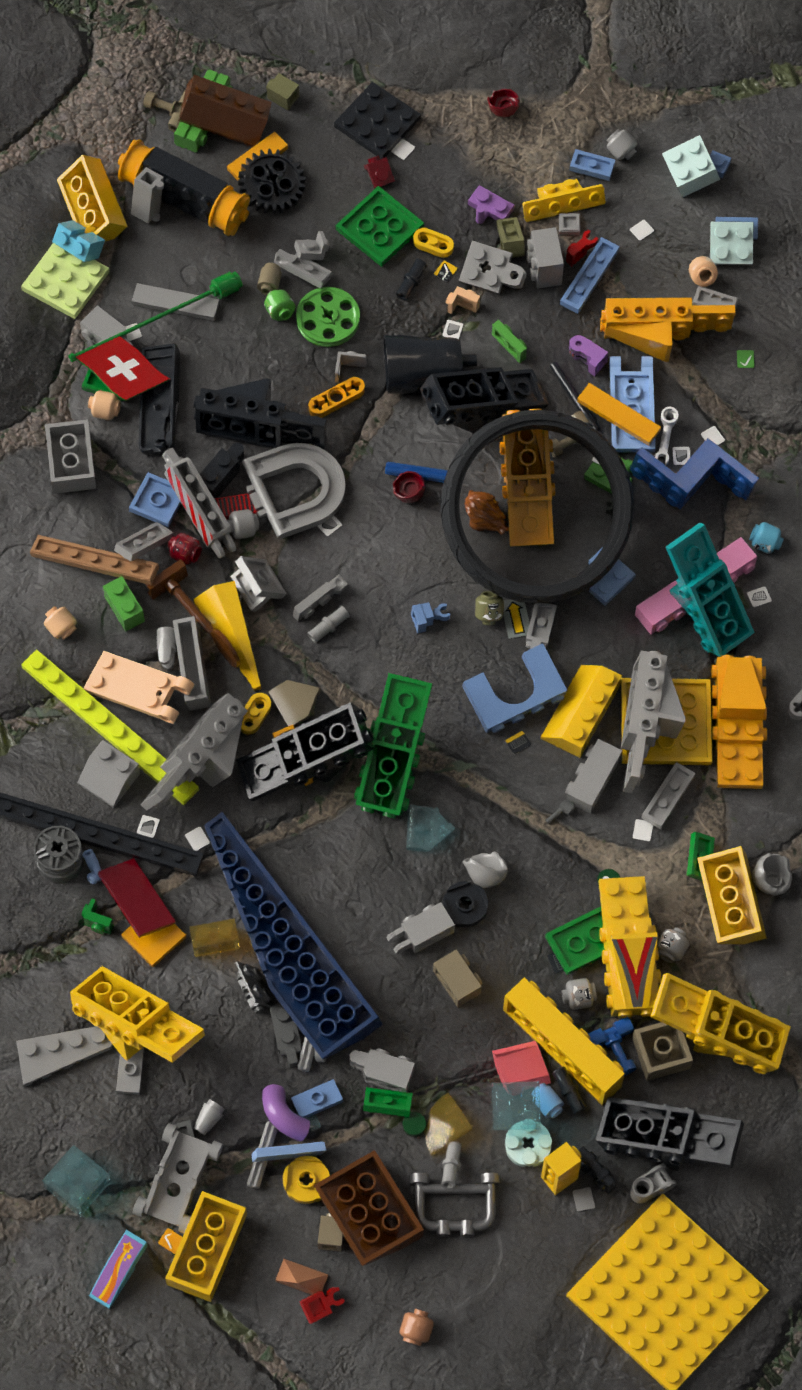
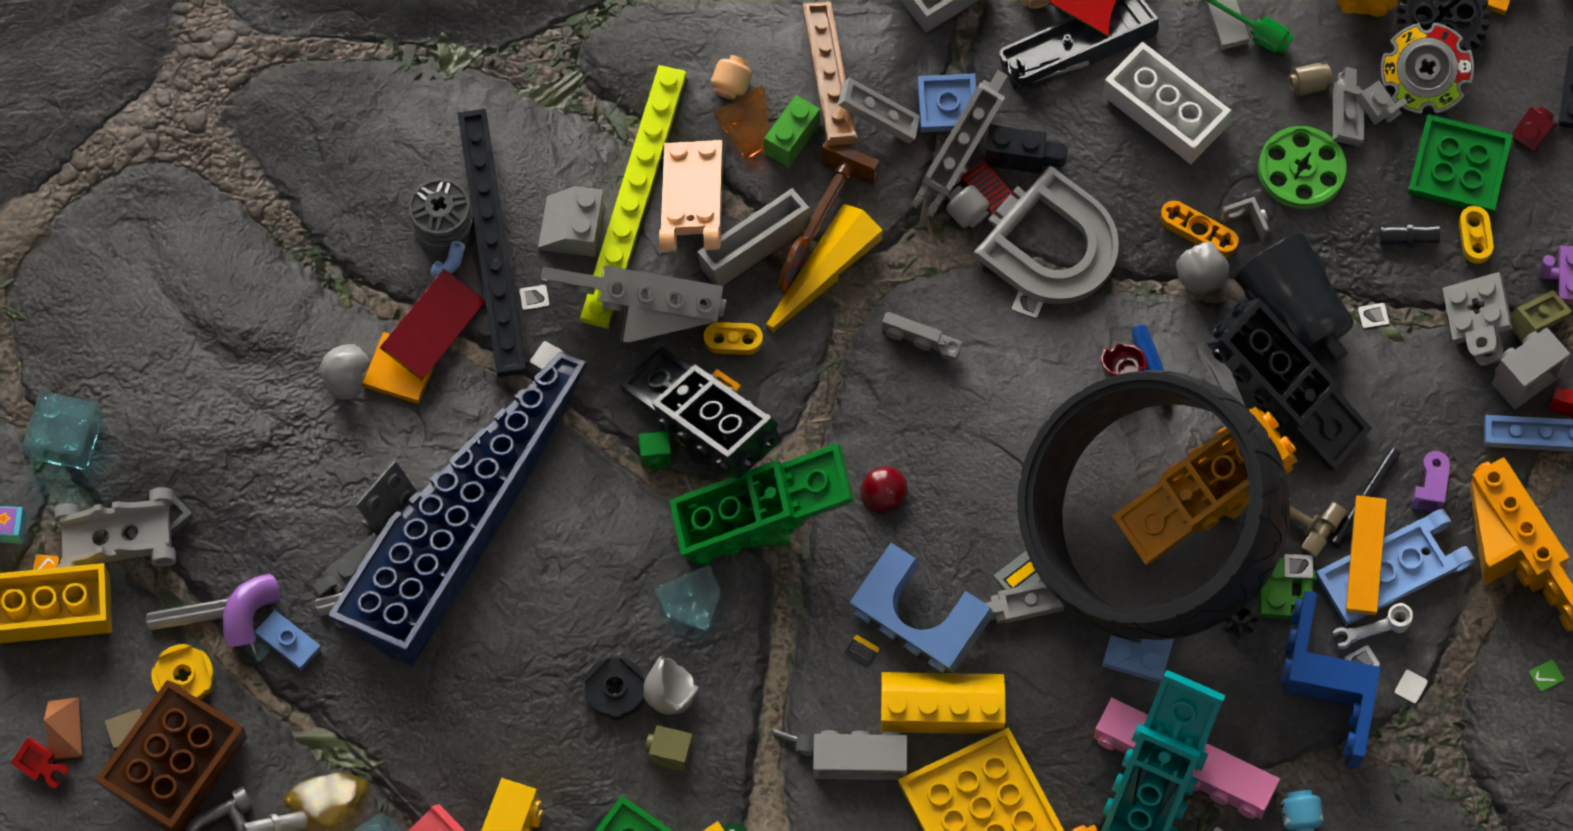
camera: 65 degrees right, 0 degrees up
(59, 1051) = (208, 335): light grey wing -> none
(96, 921) = (387, 287): green bracket -> none
(97, 630) = (746, 121): none -> clear orange wing
(130, 1074) = (225, 423): light grey plate -> none
(133, 1016) = (274, 385): yellow wedge -> none
(141, 968) = (343, 371): none -> light grey hair
(166, 647) = (760, 200): light grey hinge -> none
(184, 548) = (899, 160): dark red head -> none
(208, 1117) = (208, 532): light grey cone -> none
(214, 937) = (427, 431): clear yellow brick -> none
(240, 364) = (1166, 102): none -> white brick
(251, 408) = (1110, 144): black wedge -> none
(256, 582) = (903, 259): light grey bracket -> none
(279, 305) = (1281, 106): bright green head -> none
(288, 1151) = (202, 636): light blue tile -> none
(295, 701) = (773, 375): dark tan slope -> none
(309, 799) = (655, 450): none -> green plate
(315, 196) = (1434, 47): none -> light grey piece
(328, 624) = (893, 363): light grey pin -> none
(371, 407) = (1203, 269): none -> light grey hair
(383, 1069) = (357, 695): light grey hinge -> none
(387, 1102) = (320, 718): green plate -> none
(414, 1125) = (309, 762): dark green tile -> none
(415, 668) = (883, 489): none -> dark red hair
(423, 929) = (556, 654): light grey hinge -> none
(424, 616) = (964, 463): medium blue piece -> none
(445, 271) = (1449, 268): sticker -> none
(457, 977) = (515, 722): dark tan brick -> none
(465, 298) = (1418, 298): light nougat bracket -> none
(485, 512) = (1140, 464): dark orange hair -> none
(489, 608) = (1007, 531): olive head -> none
(505, 337) = (1390, 394): bright green plate -> none
(527, 889) = (669, 748): none -> olive brick
(650, 712) = (970, 770): light grey wedge -> none

